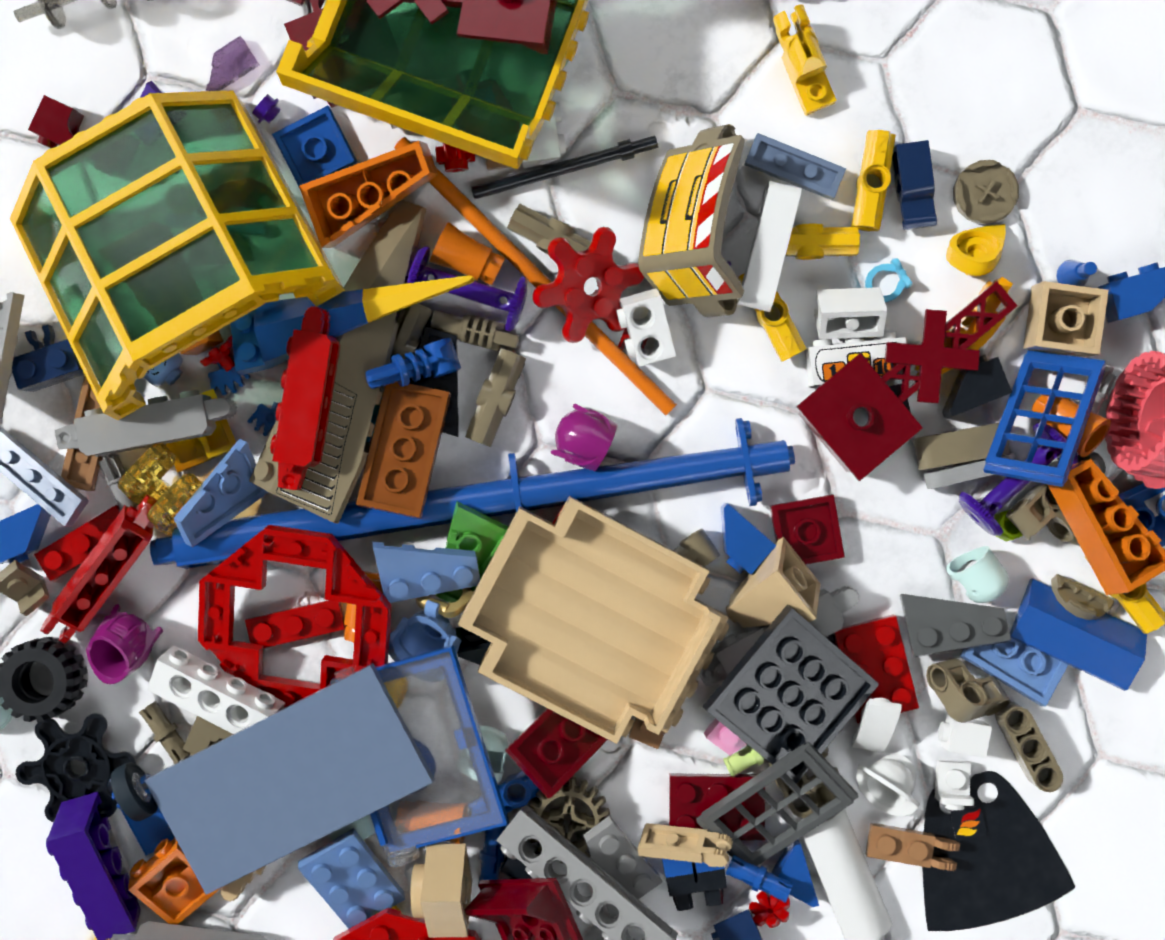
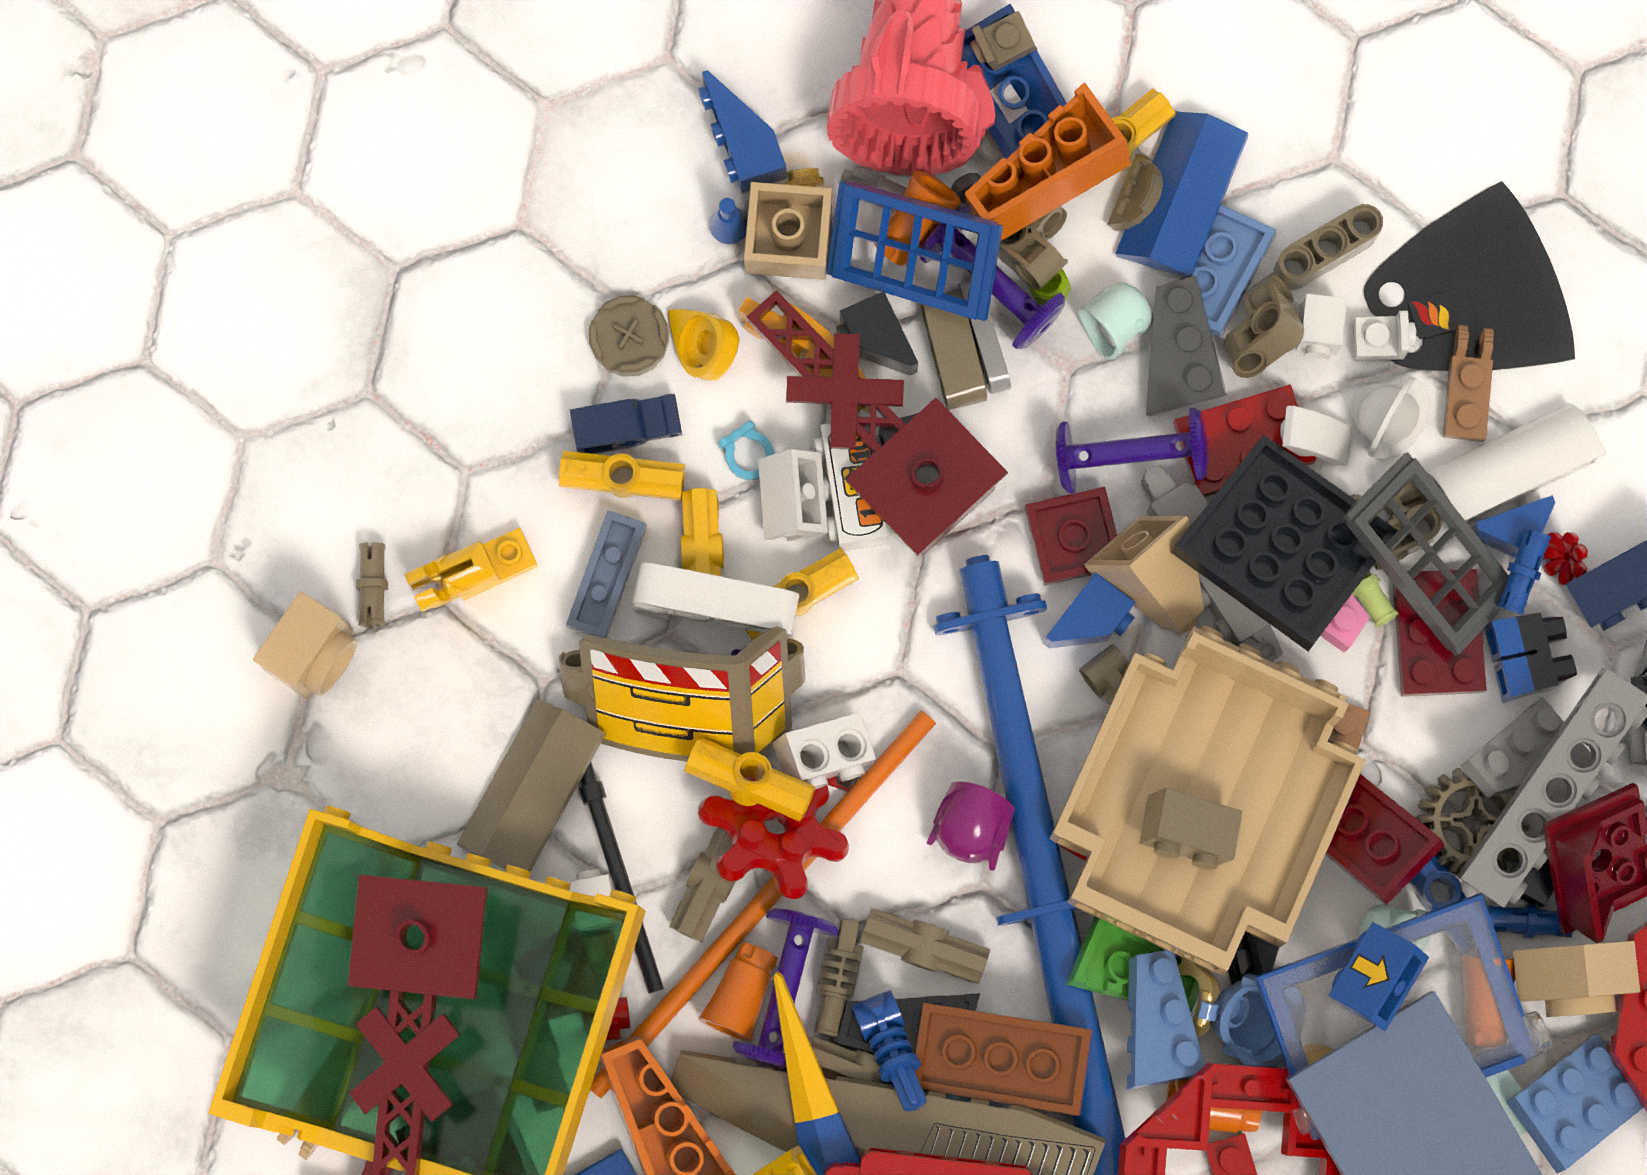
camera: 90 degrees left, 10 degrees down
(444, 740) = (1378, 975): none -> blue brick
(569, 604) = (1190, 828): none -> dark tan brick
(630, 102) = (531, 787): none -> dark tan slope
(634, 247) = (771, 788): none -> yellow piece
(685, 844) = (1489, 668): tan hinge -> none
(872, 579) = (1131, 450): none -> dark purple hose
(1109, 336) = (804, 177): none -> clear yellow plate

